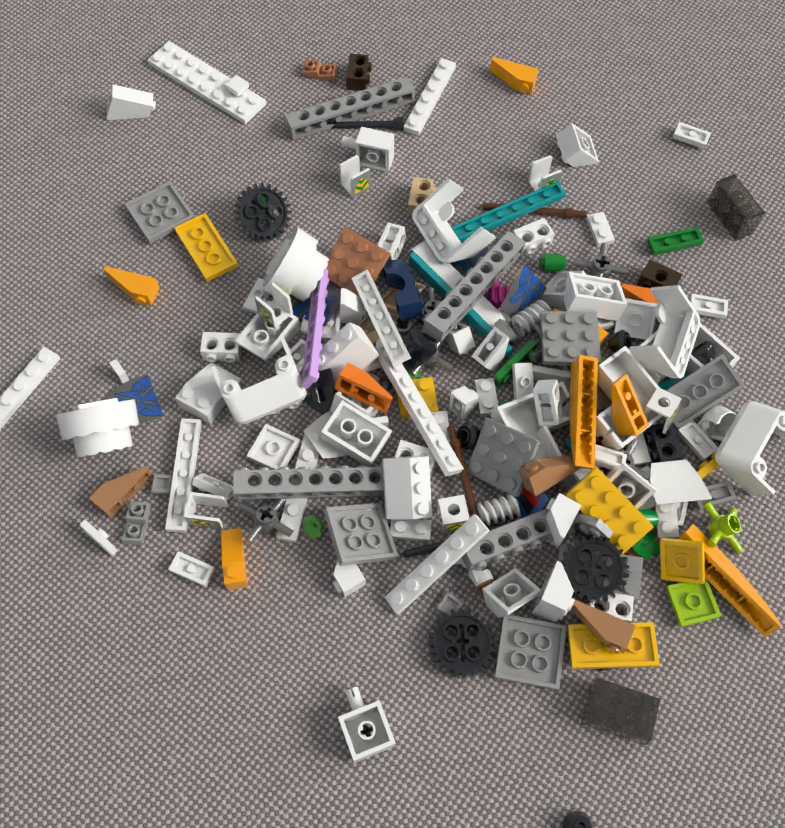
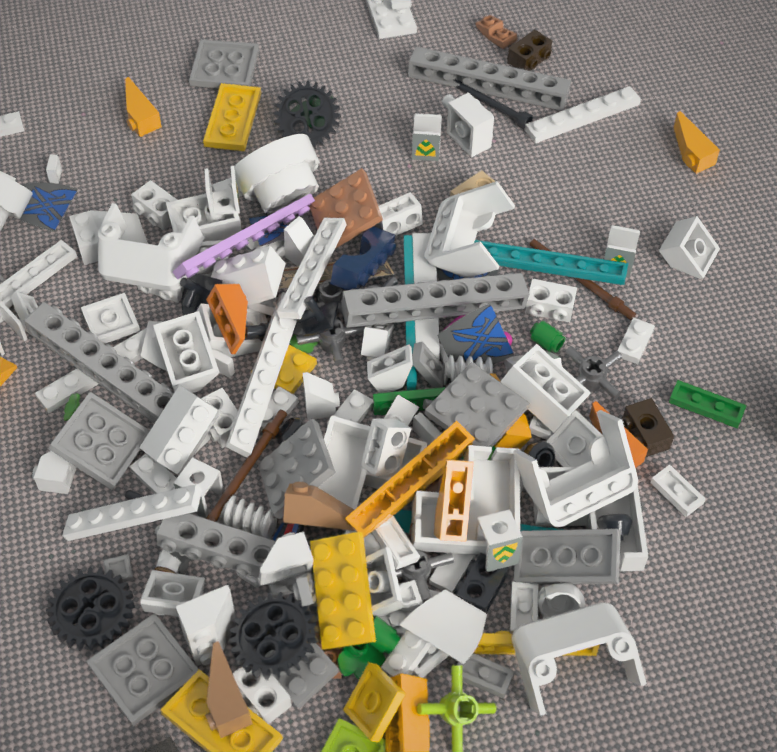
camera: 40 degrees right, 10 degrees down
(270, 518) = (37, 370): flat silver bar -> none

